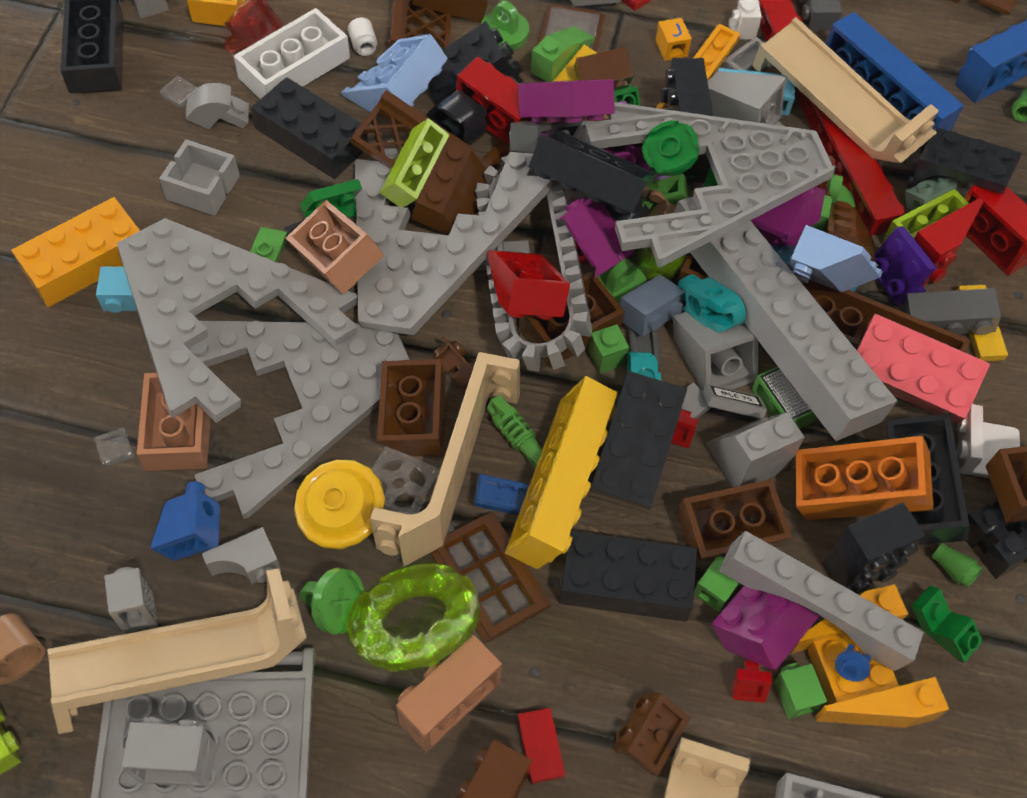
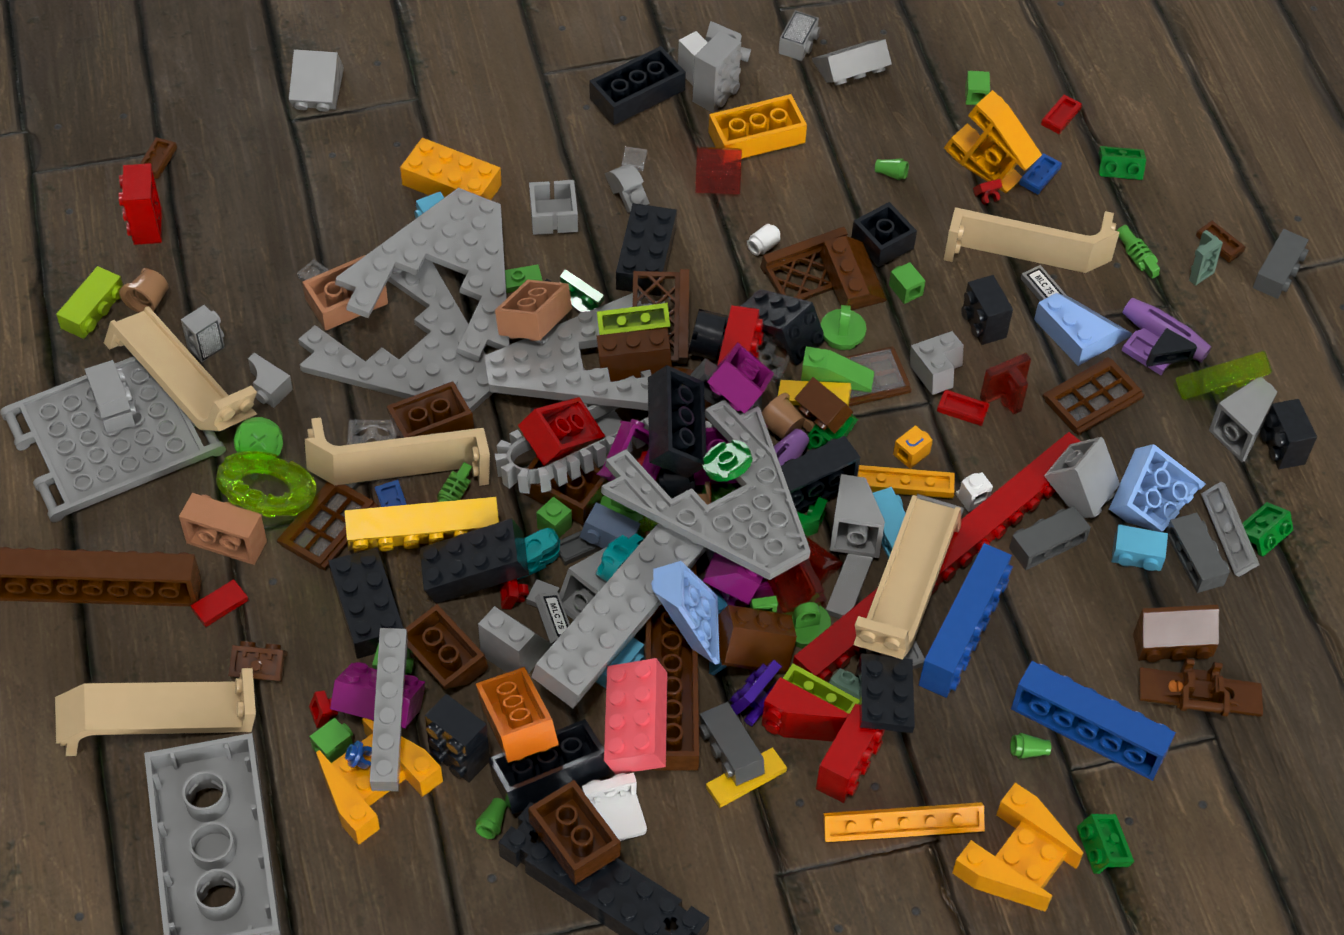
camera: 65 degrees right, 5 degrees down
(187, 524) = (274, 336): blue torso -> none
(296, 51) = (708, 205): white brick -> none
(337, 503) = (340, 409): yellow piece -> none
(401, 70) = (728, 278): light blue wedge -> none
(452, 357) = (495, 428): reddish brown hinge -> none
(949, 629) = (437, 826): green slope -> none

